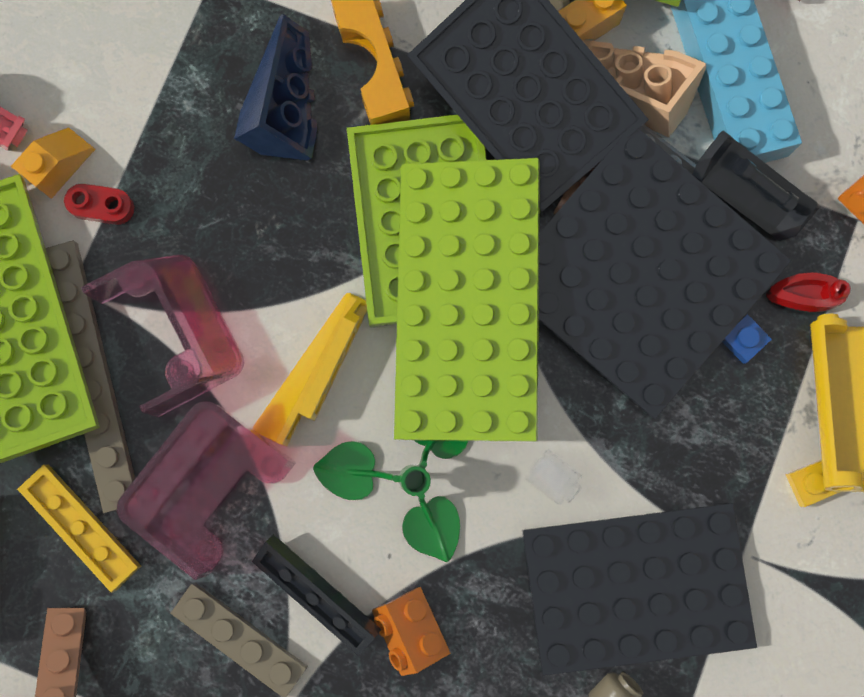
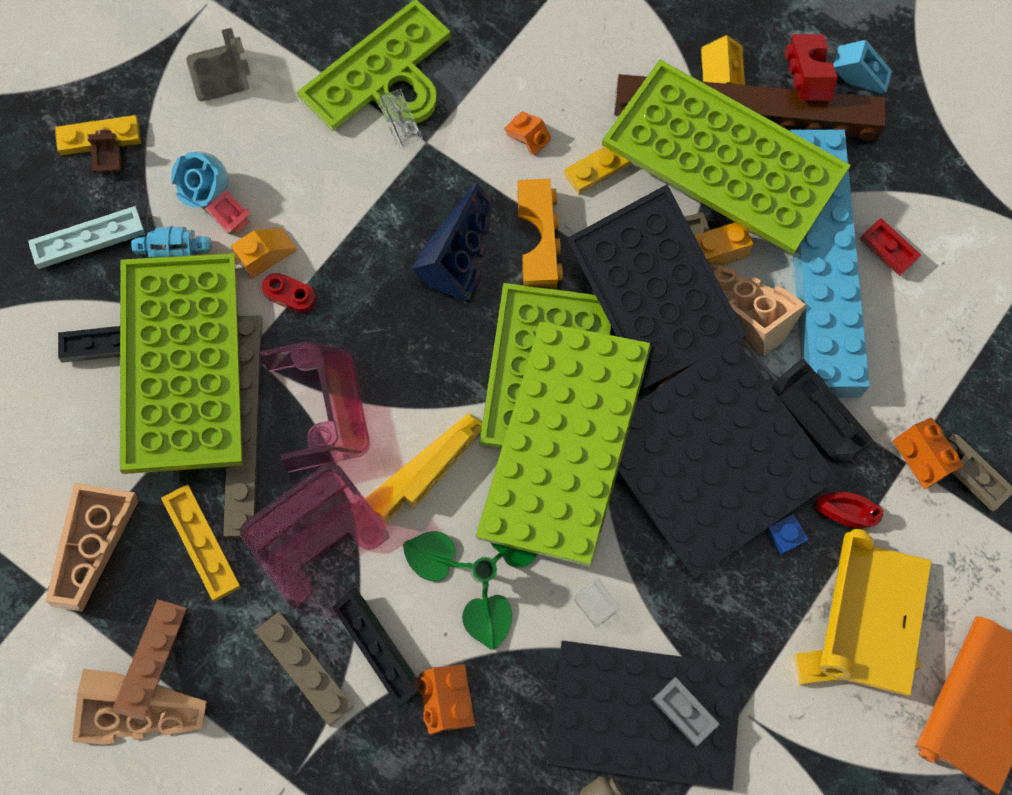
camera: 10 degrees right, 10 degrees down
(686, 578) = (685, 712): none -> light grey plate

